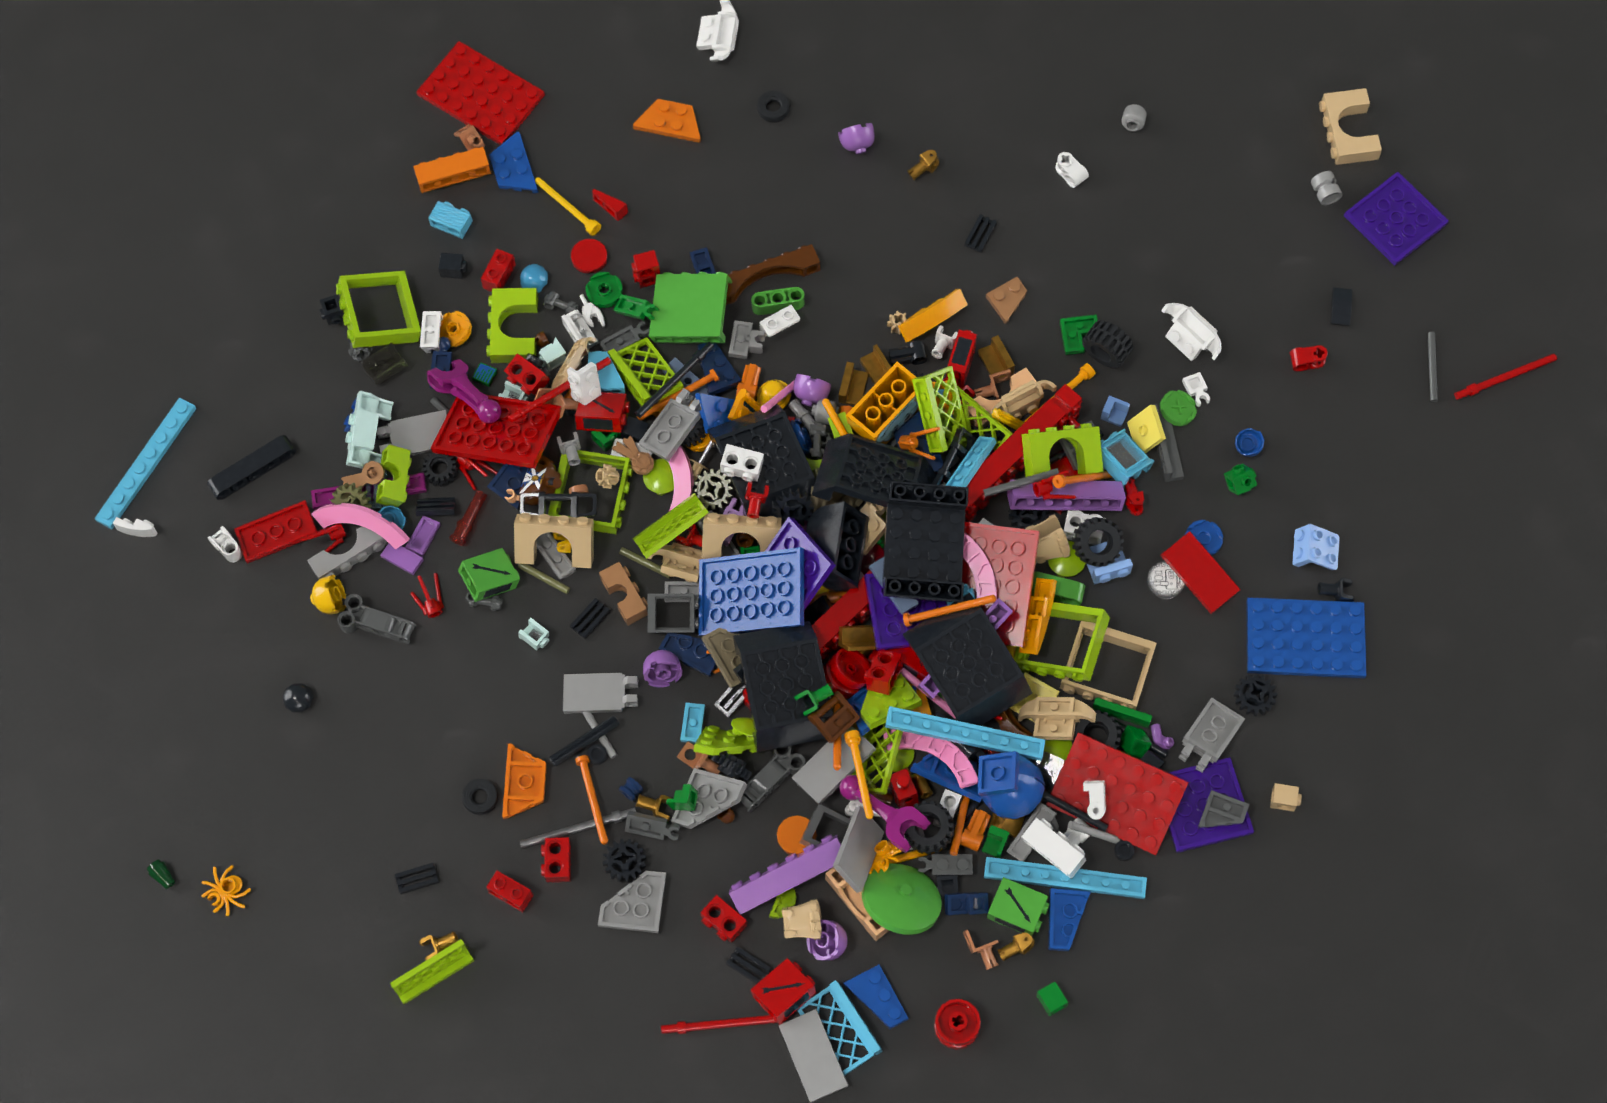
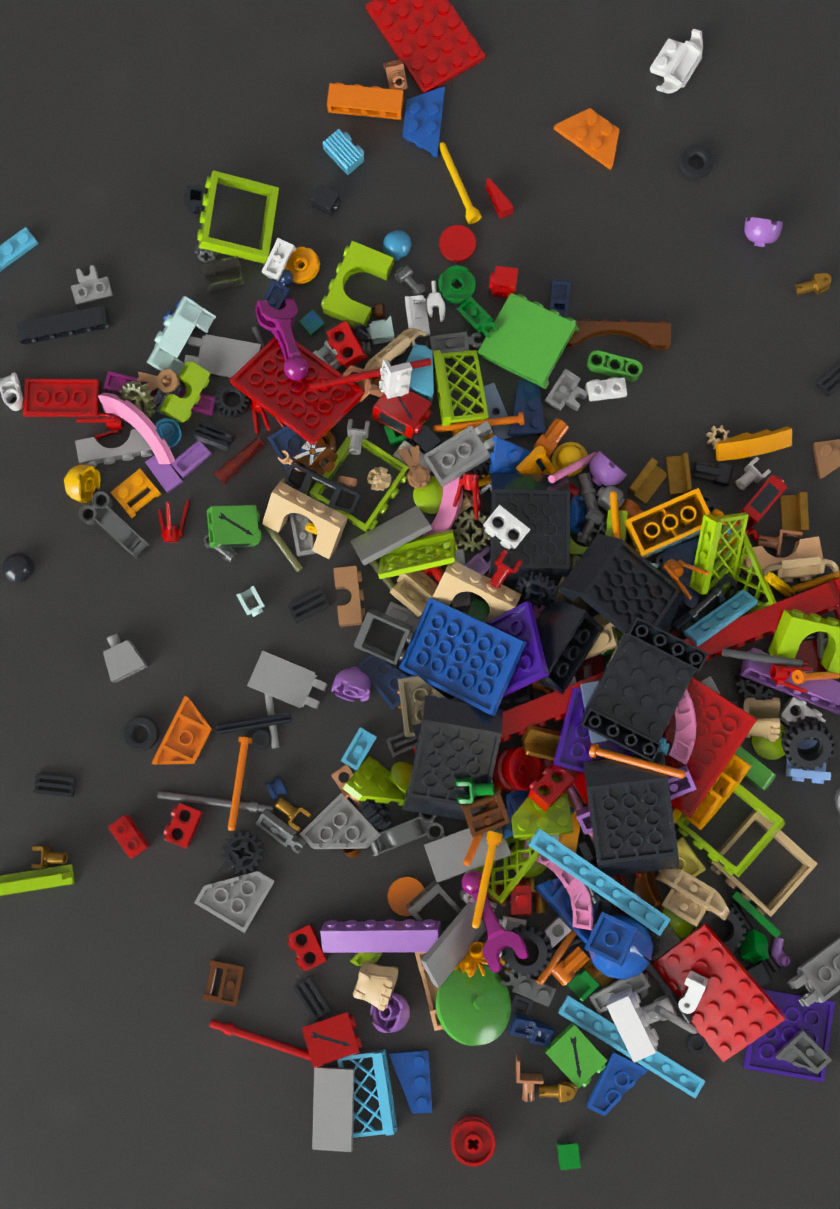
camera: 25 degrees right, 15 degrees up
(263, 425) = (91, 287): none -> light grey plate
(378, 583) = (131, 489): none -> light orange plate
(435, 736) = (122, 659): none -> light grey torso
(498, 270) = (365, 224): red brick -> none
(639, 523) = (390, 535): none -> light grey tile
(664, 985) = (229, 985): none -> reddish brown plate
(684, 799) = (319, 821): green panel -> none
(692, 445) = (471, 482): none -> red plant
(696, 358) = (514, 393): black bar -> none

